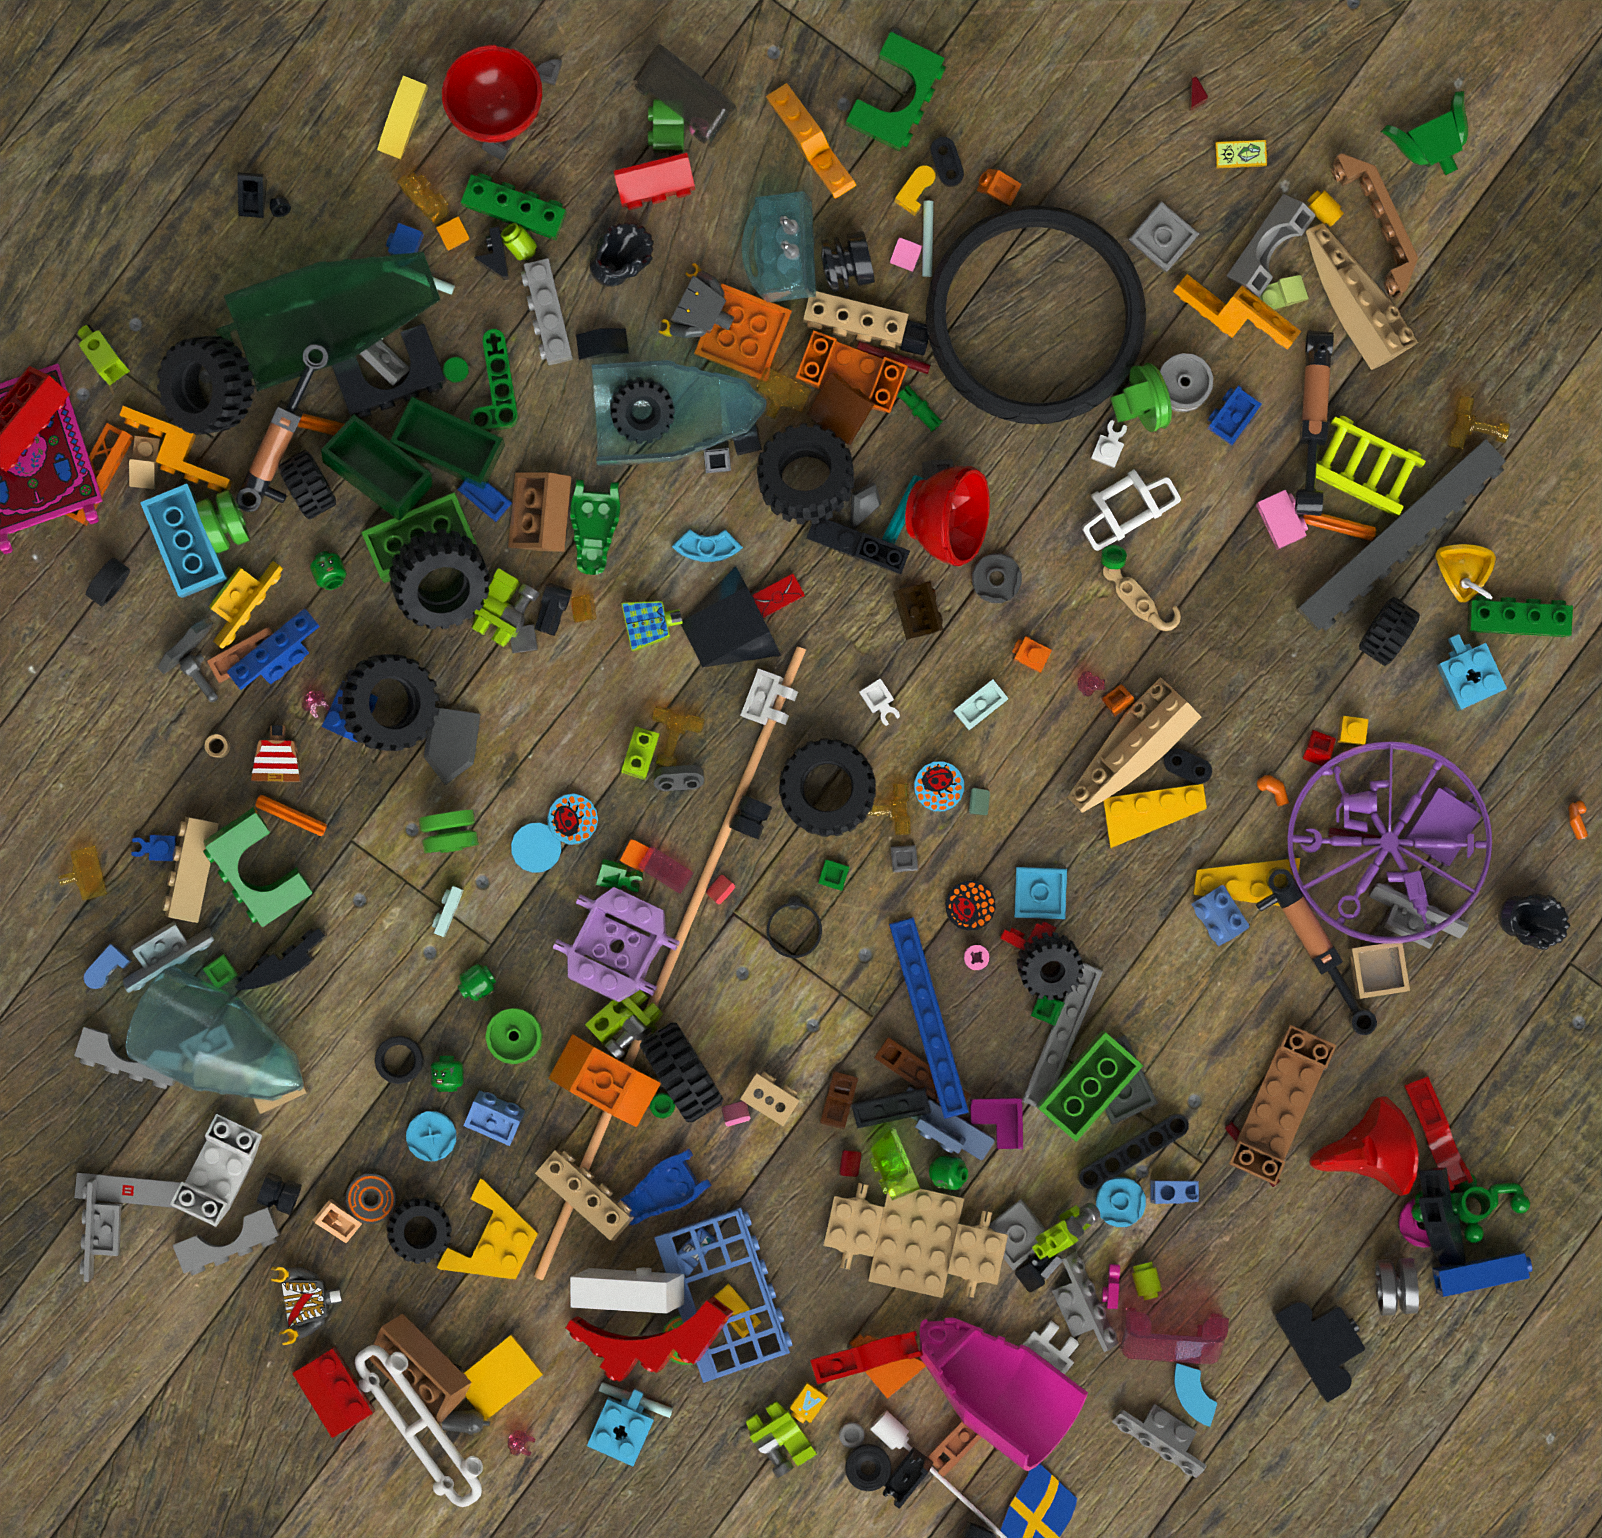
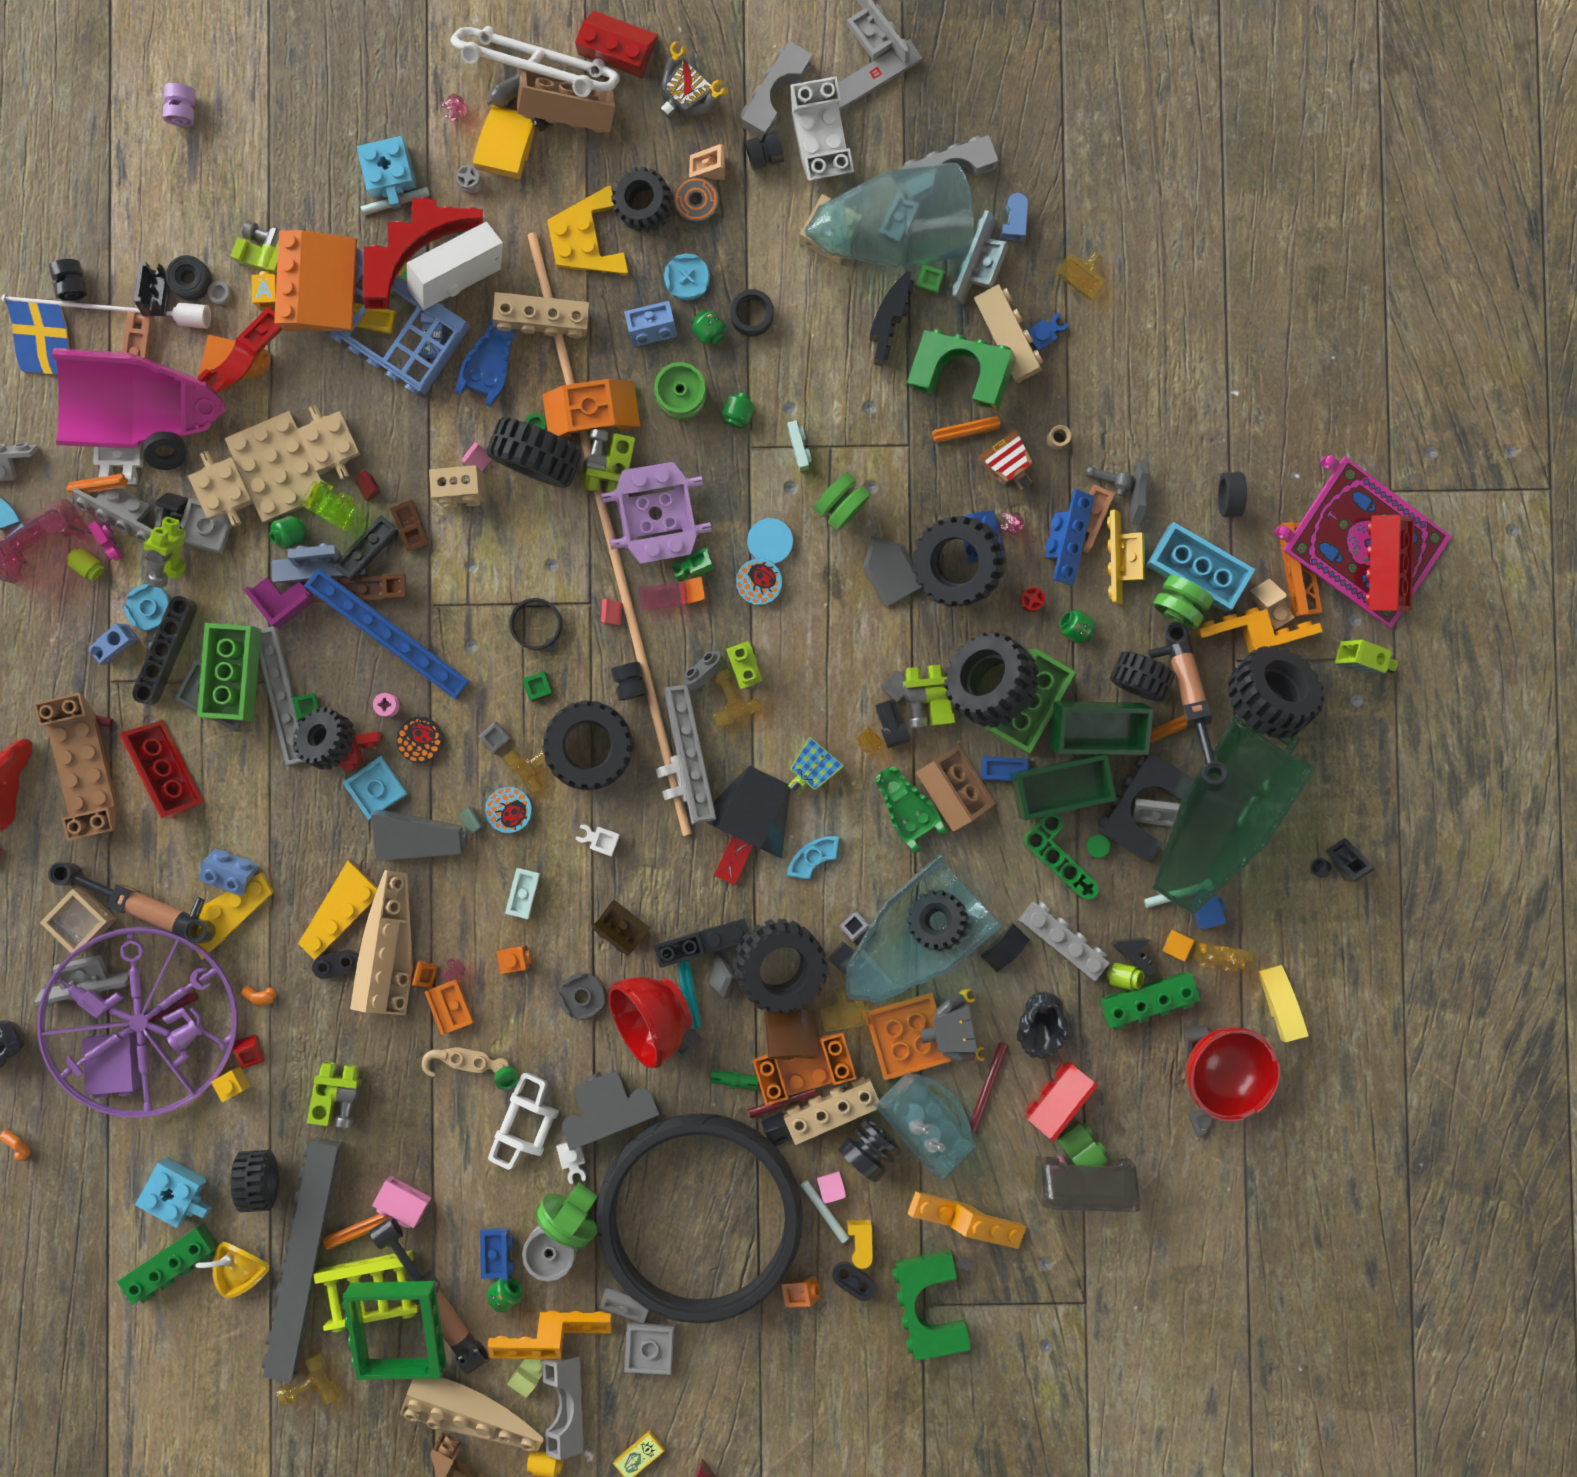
camera: 150 degrees right, 0 degrees up
(346, 620) = (1035, 596): none -> red wheel
(553, 1370) = (465, 175): none -> light grey wheel
(707, 238) = (987, 1087): none -> dark red bar
(746, 714) = (689, 754): none -> light grey tile
(757, 1369) = (315, 281): none -> orange slope
(998, 1334) = (164, 439): none -> black tyre
(1036, 822) = (414, 837): none -> dark grey slope
(1047, 465) = (606, 1109): none -> dark grey brick
(1082, 1340) = (98, 484): none -> orange axle
(1117, 655) = (449, 1006): none -> orange plate
(1157, 289) = (623, 1305): none -> light grey plate
(1210, 1048) = (161, 769): none -> red slope
(1251, 375) = (504, 1294): none -> green head
(1266, 658) = (330, 1089): none -> lime hips
(1386, 382) = (395, 1367): none -> green window

